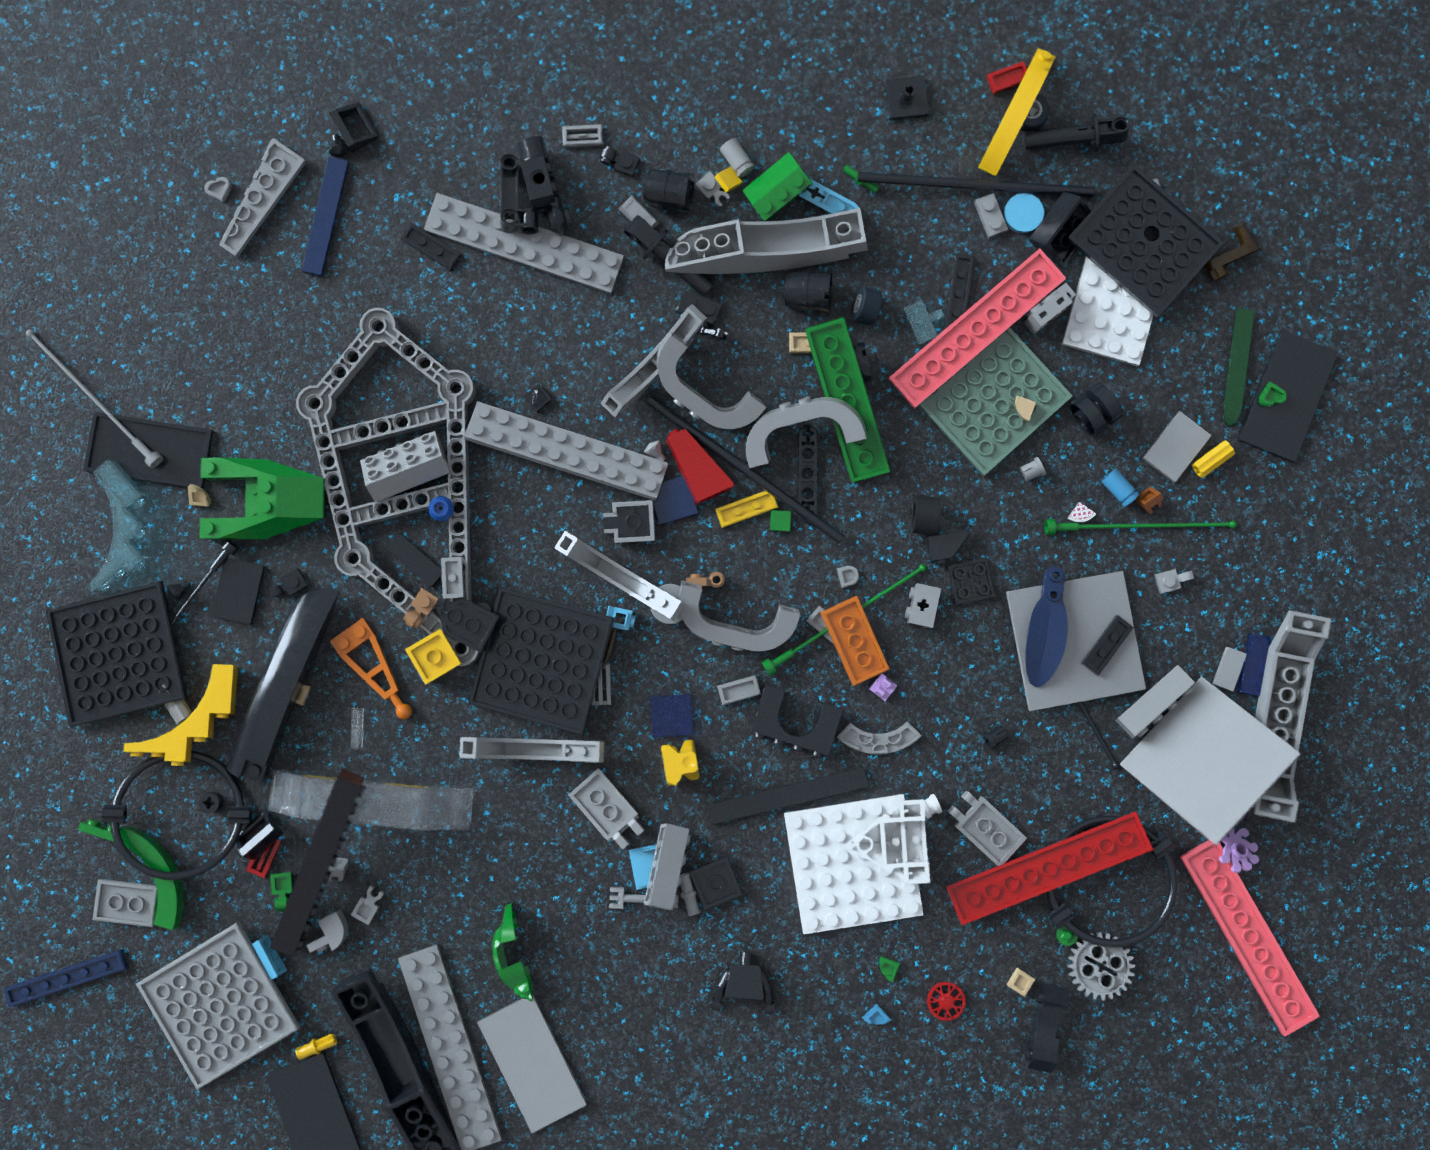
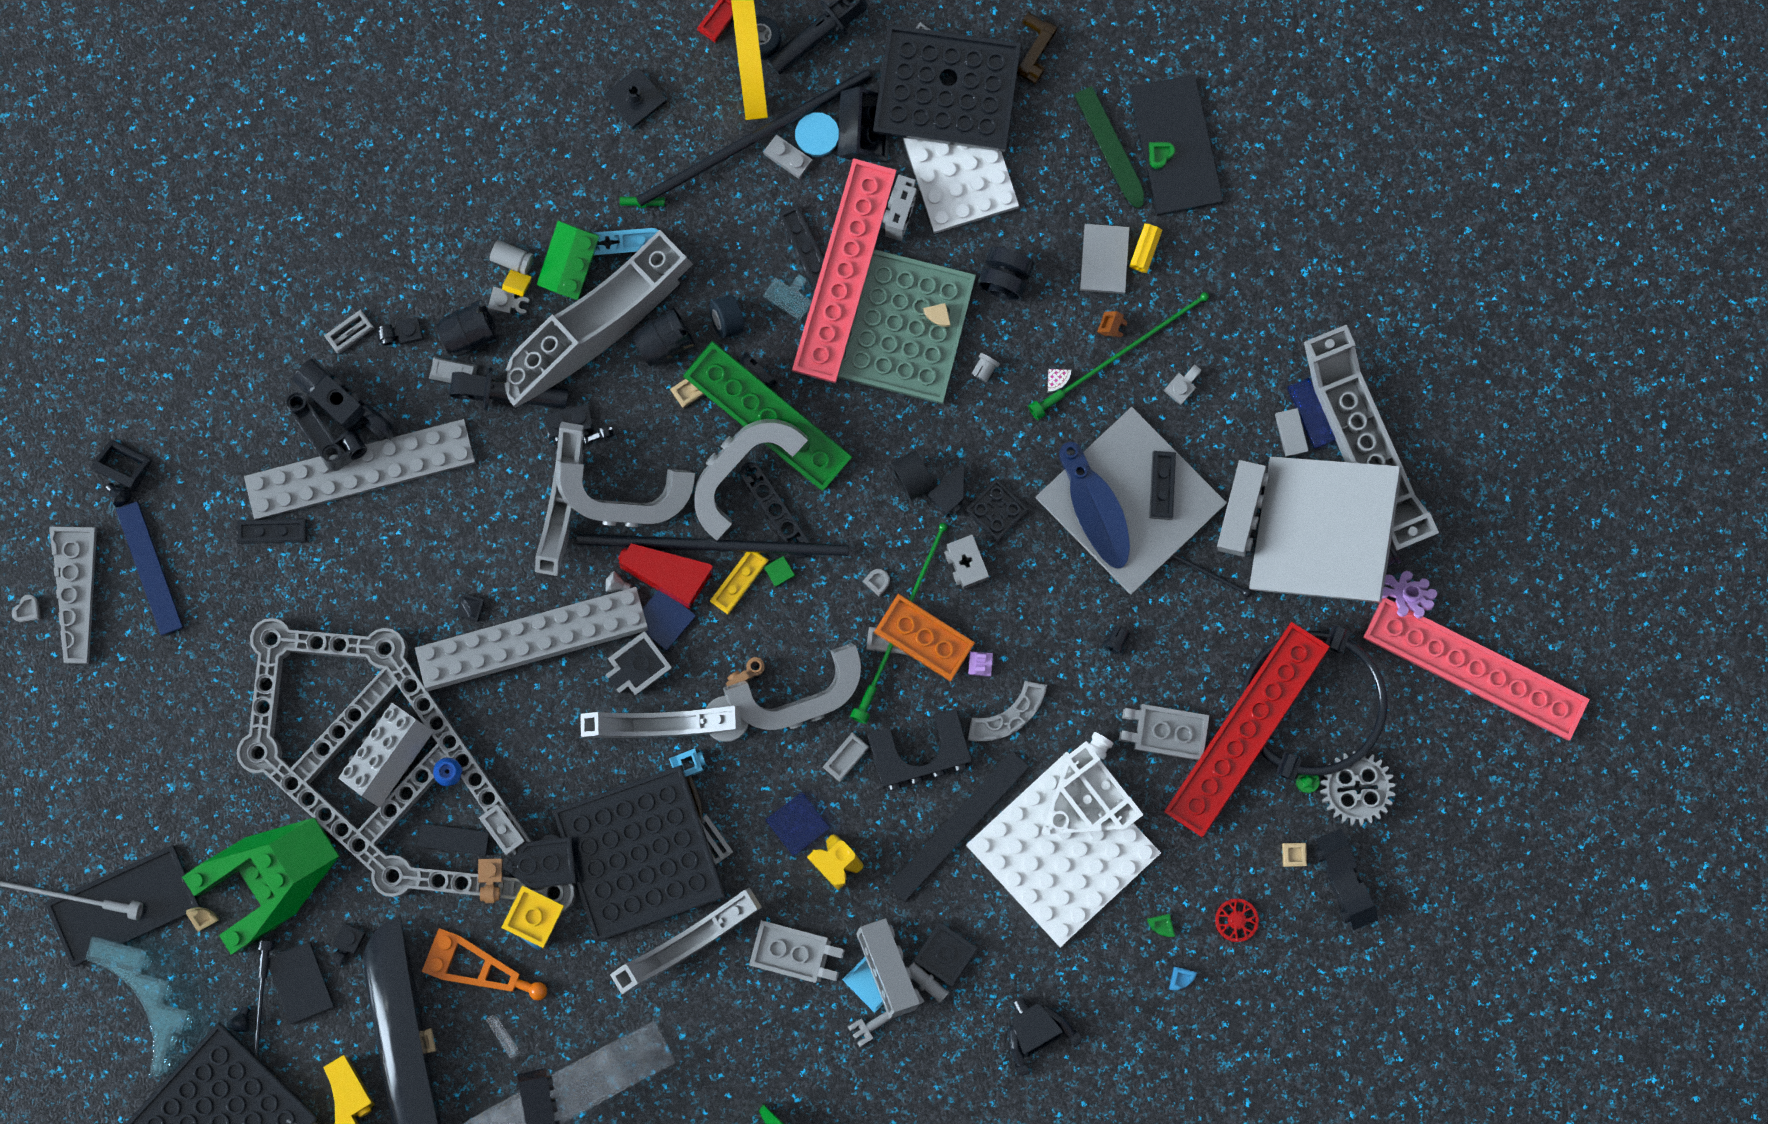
camera: 35 degrees left, 5 degrees down
(1120, 487) = (1077, 331): dark azure piece -> none

